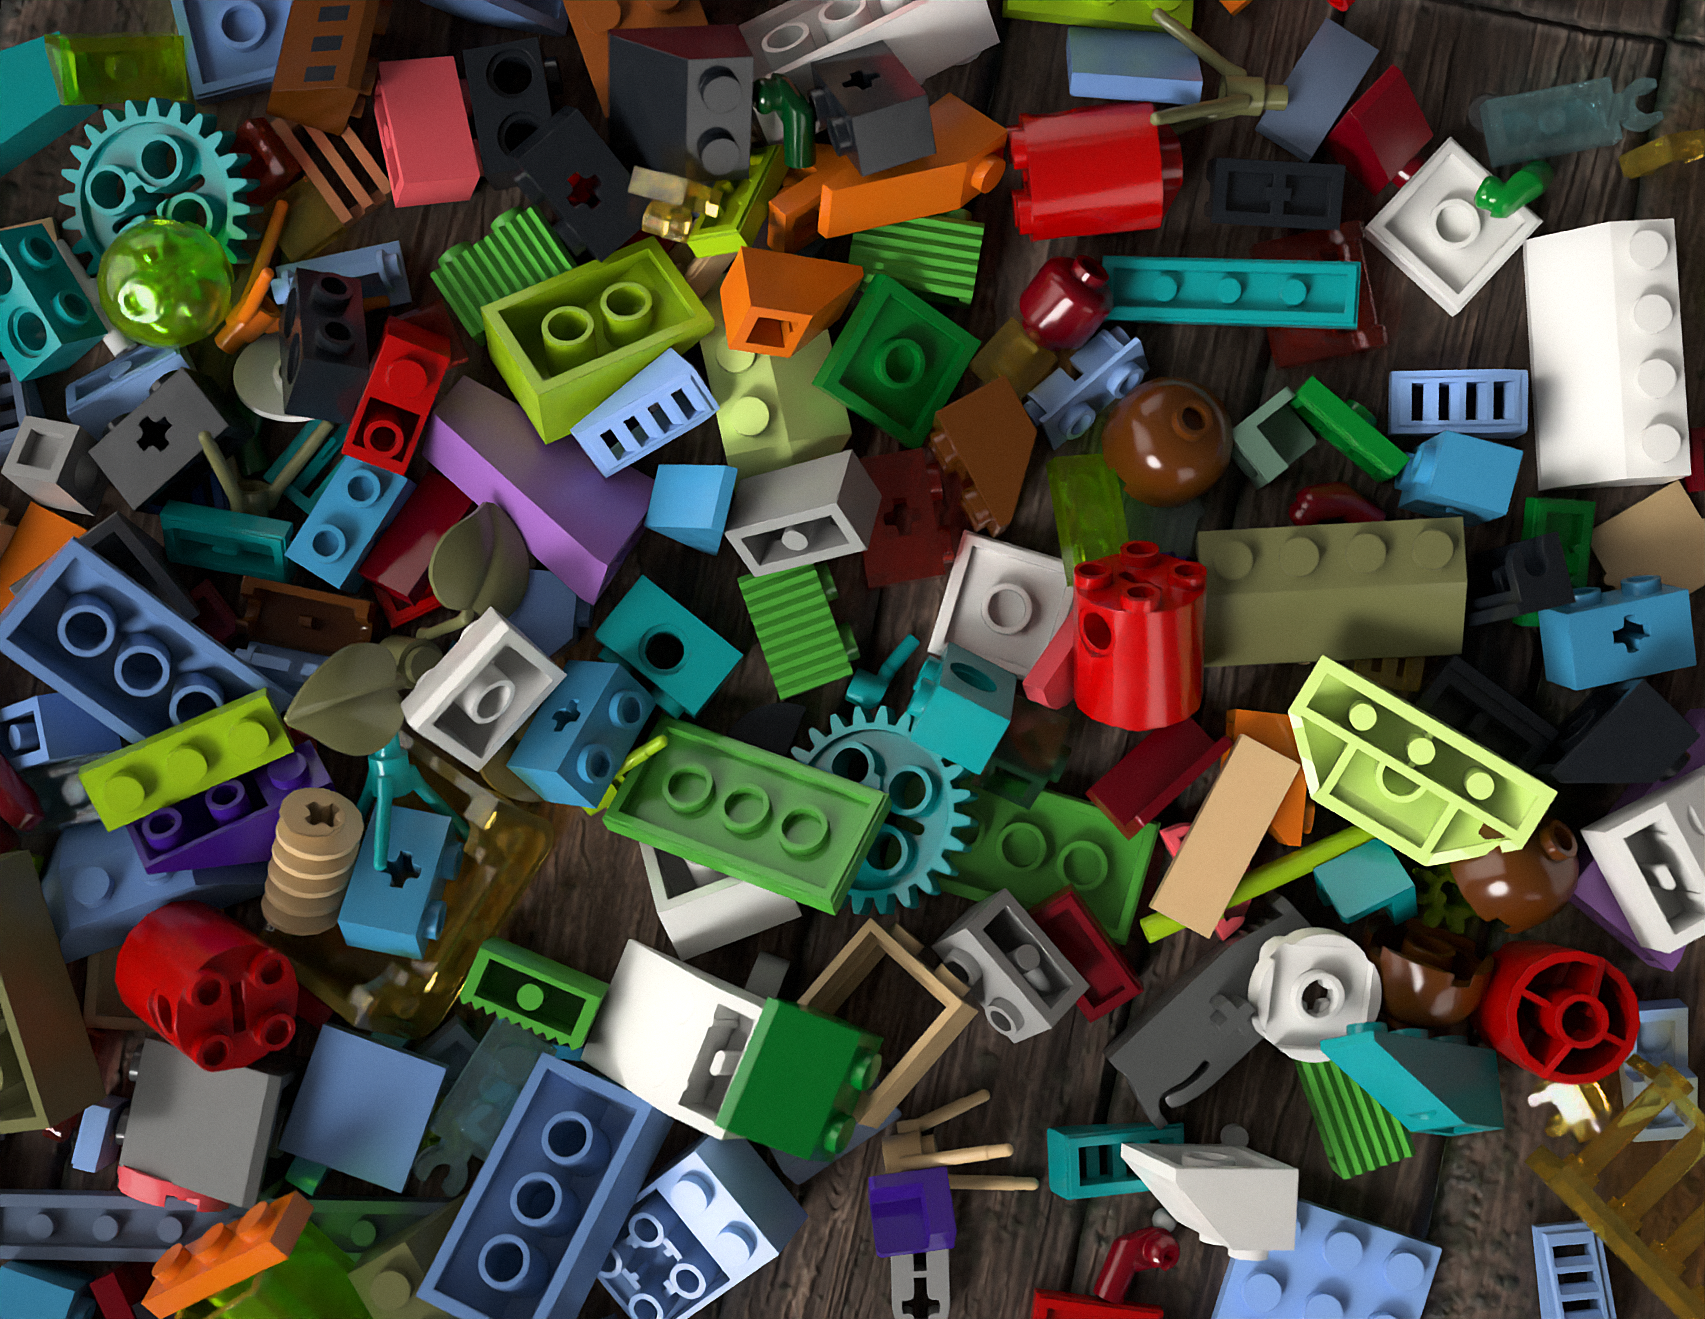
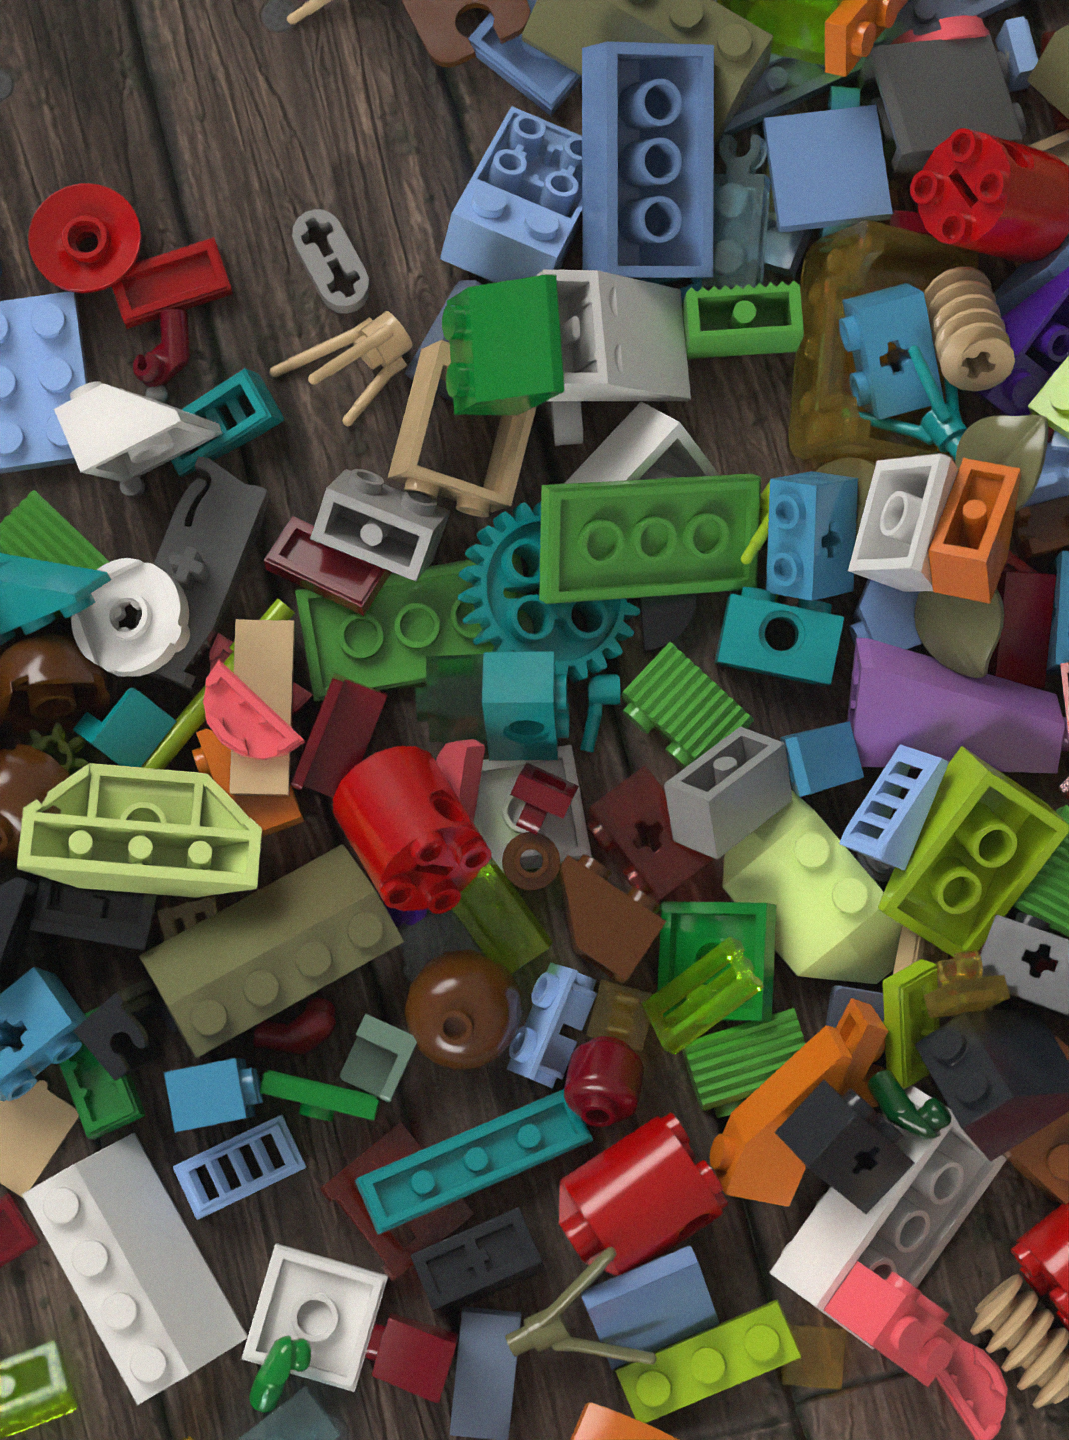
camera: 145 degrees right, 5 degrees down
(420, 641) = (974, 531): none -> orange slope
(783, 300) = (834, 955): orange slope -> none
(883, 332) = (706, 1003): none -> clear neon green tile
(911, 1212) = (362, 298): dark purple panel -> none
(985, 609) = (543, 795): none -> dark red tile
(1015, 566) = (522, 878): none -> reddish brown plate
(1253, 832) = (244, 719): none -> coral tile

